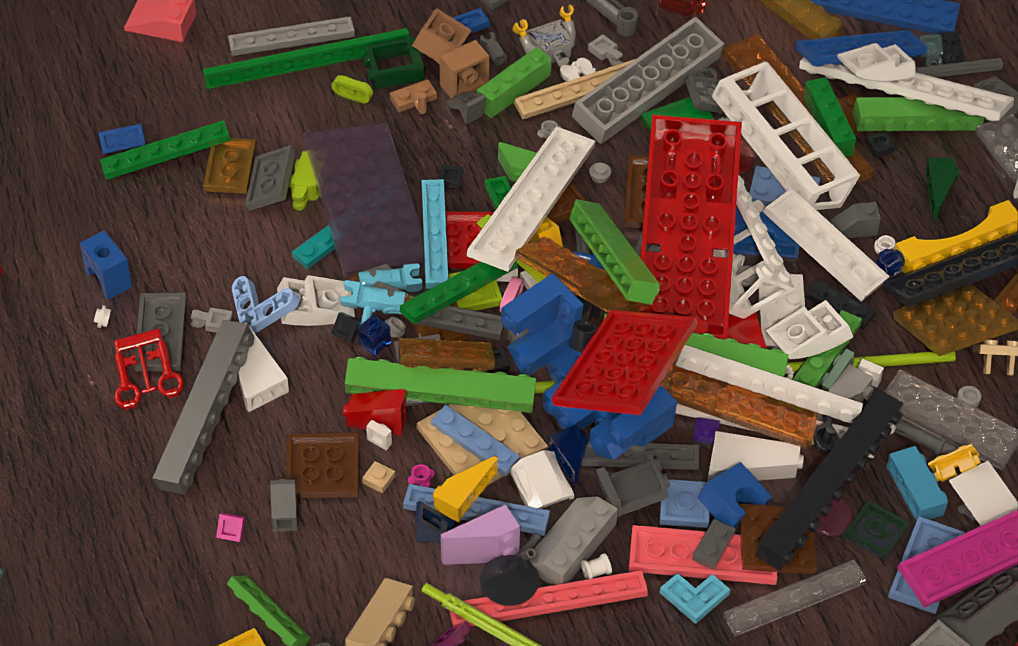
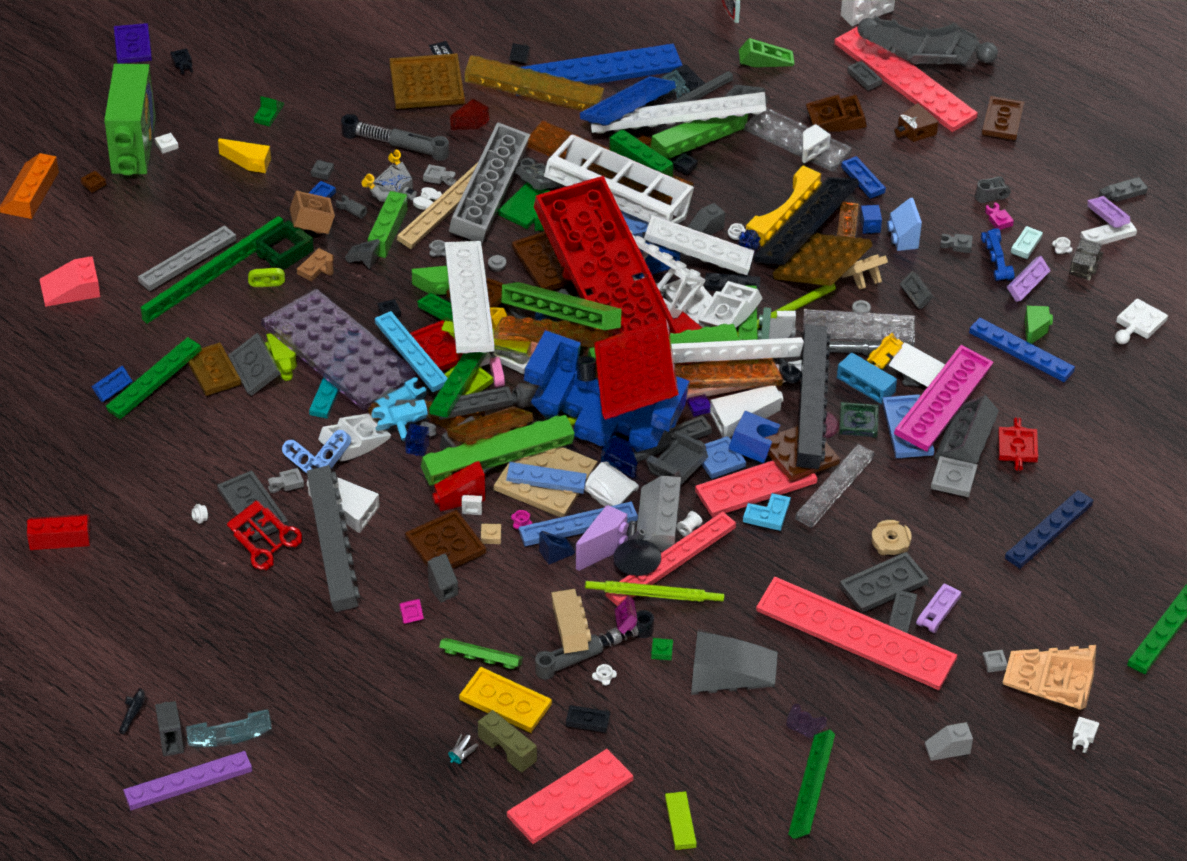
camera: 30 degrees left, 5 degrees down
(107, 262) = (179, 470): blue piece -> none
(346, 327) = (391, 443): black plate -> none
(464, 69) = (346, 228): medium nougat brick -> none
(464, 488) = (563, 512): yellow slope -> none
(714, 544) = (760, 473): dark grey plate -> none
(879, 63) = (653, 104): white slope -> none
(940, 182) = (744, 171): dark green slope -> none

